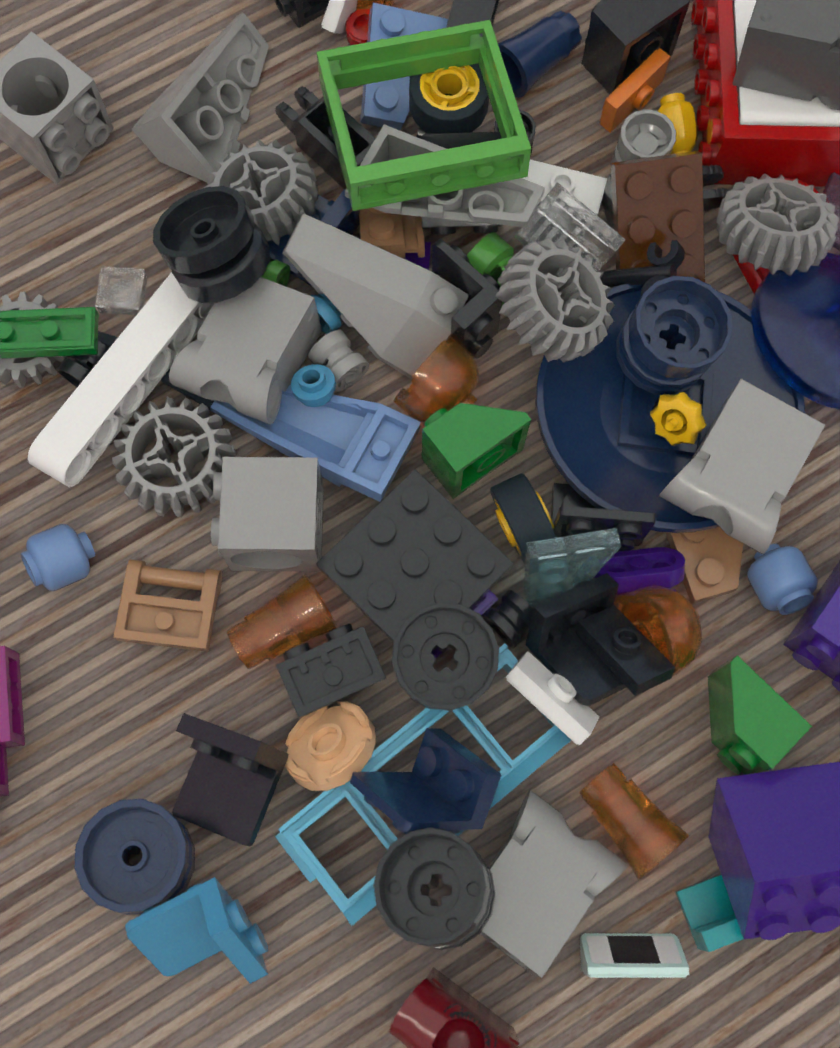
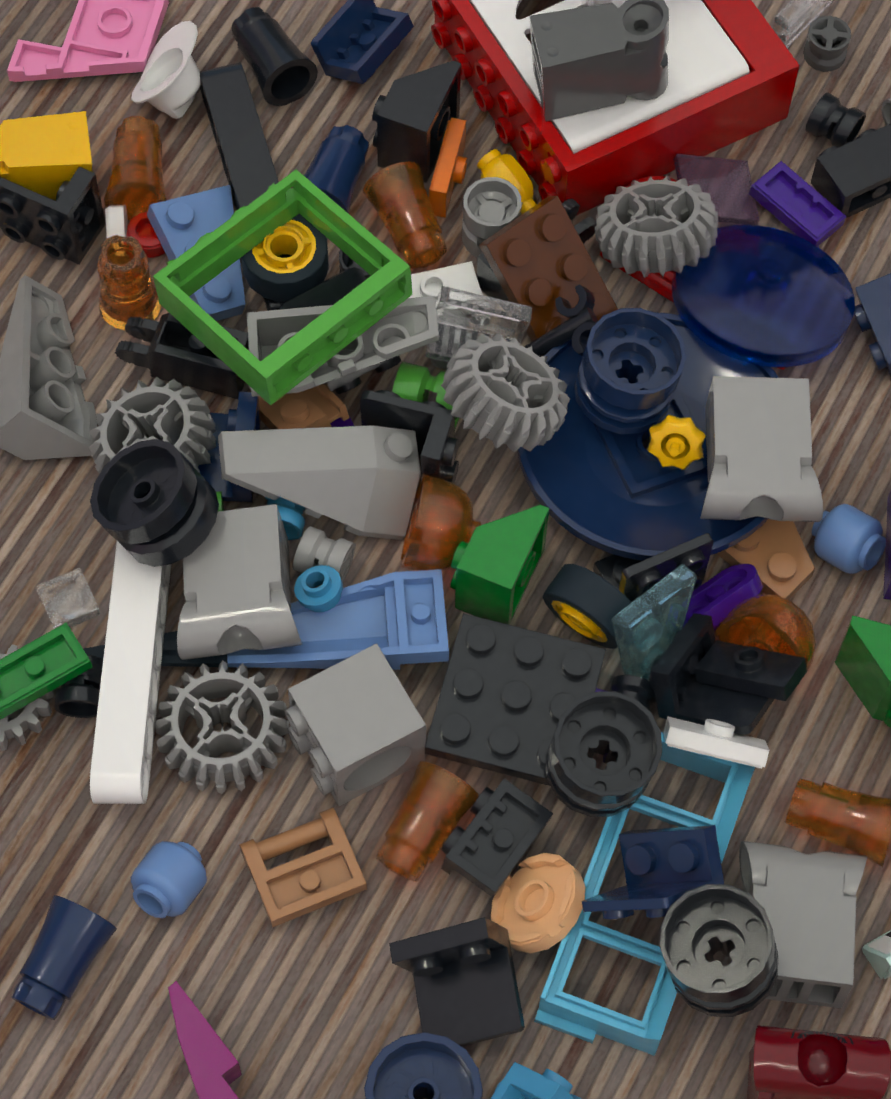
camera: 30 degrees left, 10 degrees down
(311, 33) = (125, 282): none -> clear orange plant
(578, 105) = (406, 211): none -> clear orange plant

